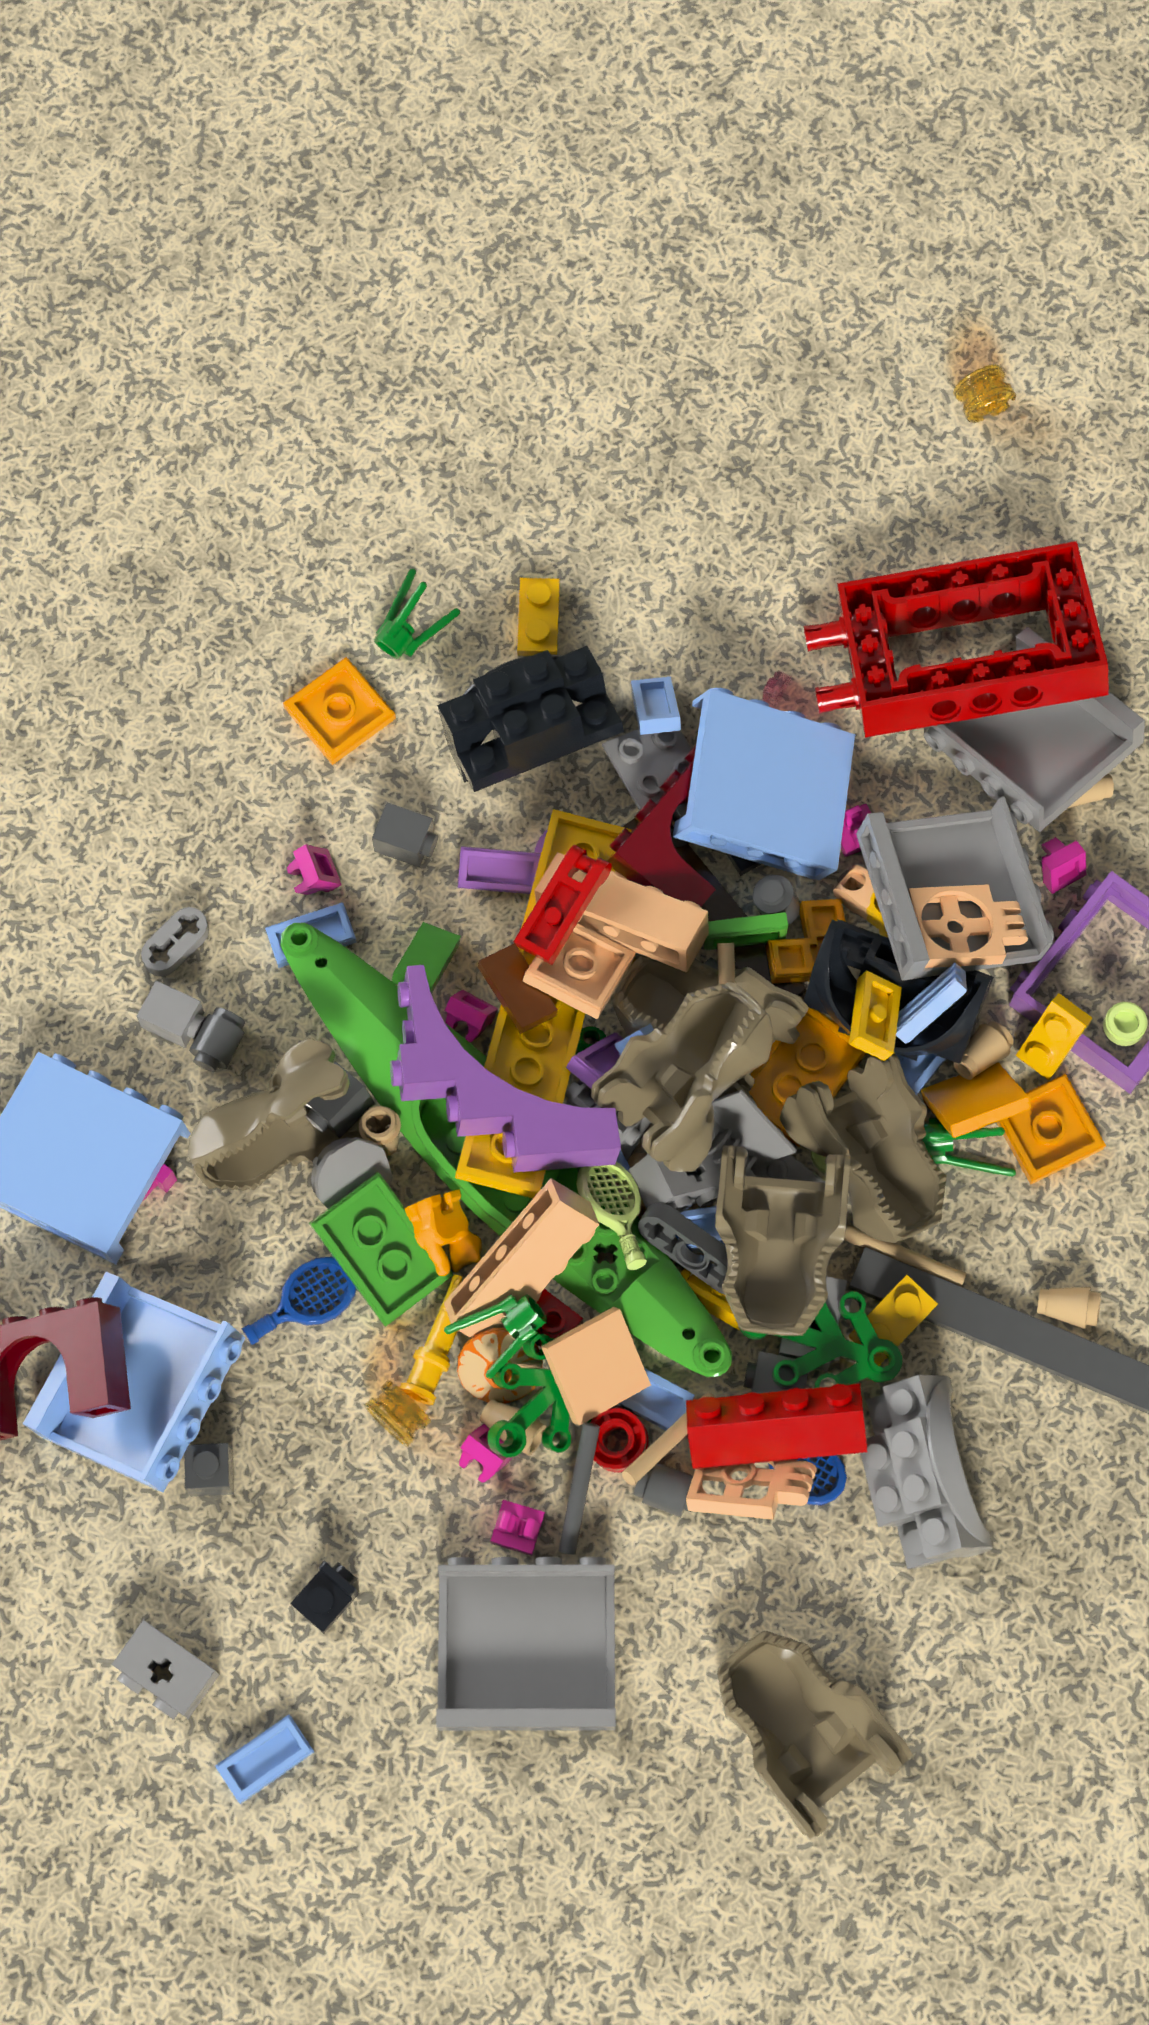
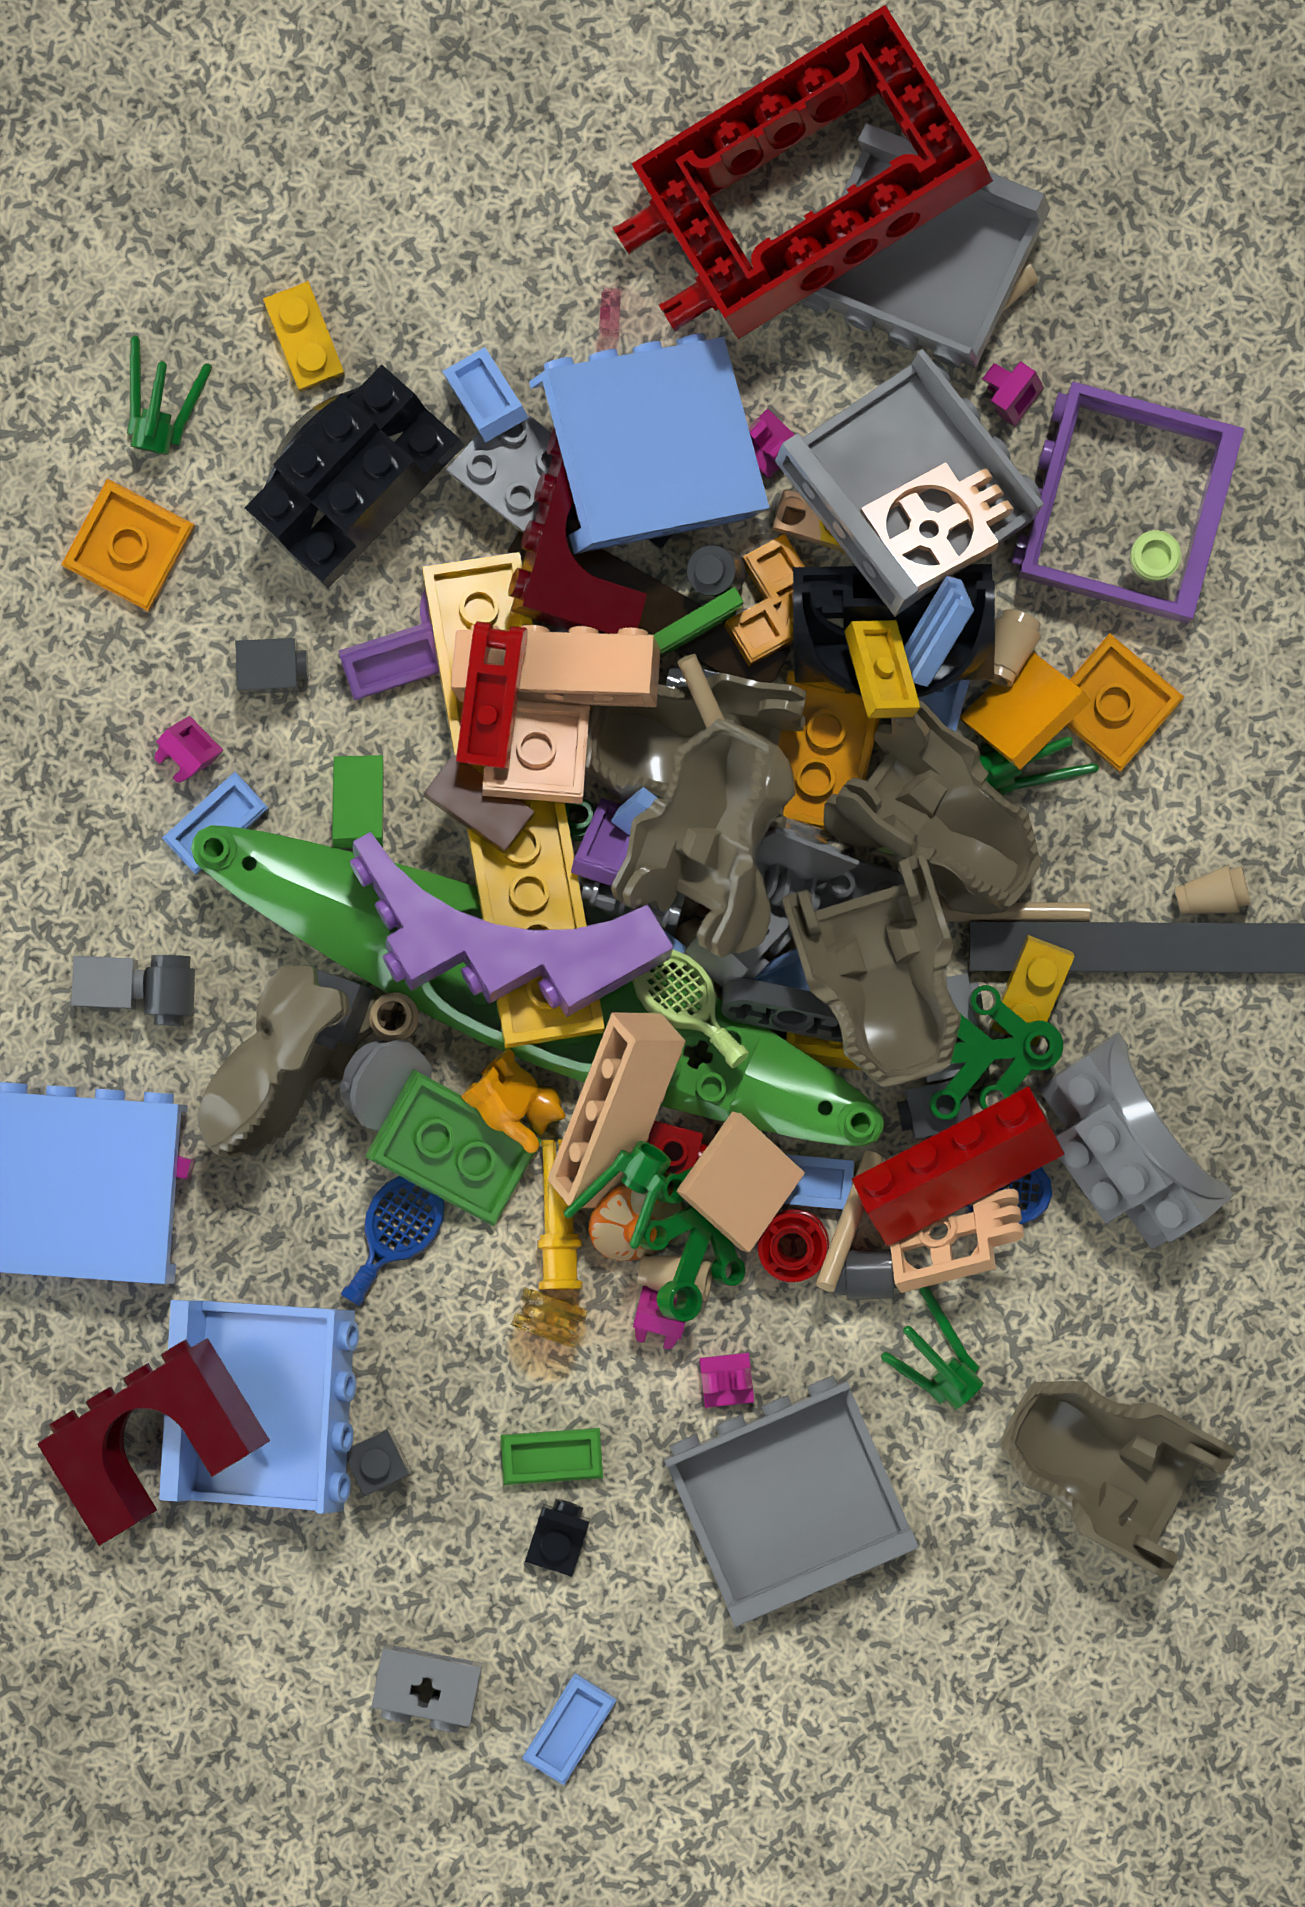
camera: 20 degrees left, 15 degrees up
(181, 948) = (57, 891): light grey beam -> none
(350, 1529) = (551, 1456): none -> bright green tile
(471, 1010) = (432, 838): dark pink tile -> none
(579, 1488) = (775, 1314): dark grey bar -> none
(702, 1605) = (953, 1380): none -> green plant
(1054, 1036) = (1083, 602): yellow plate -> none

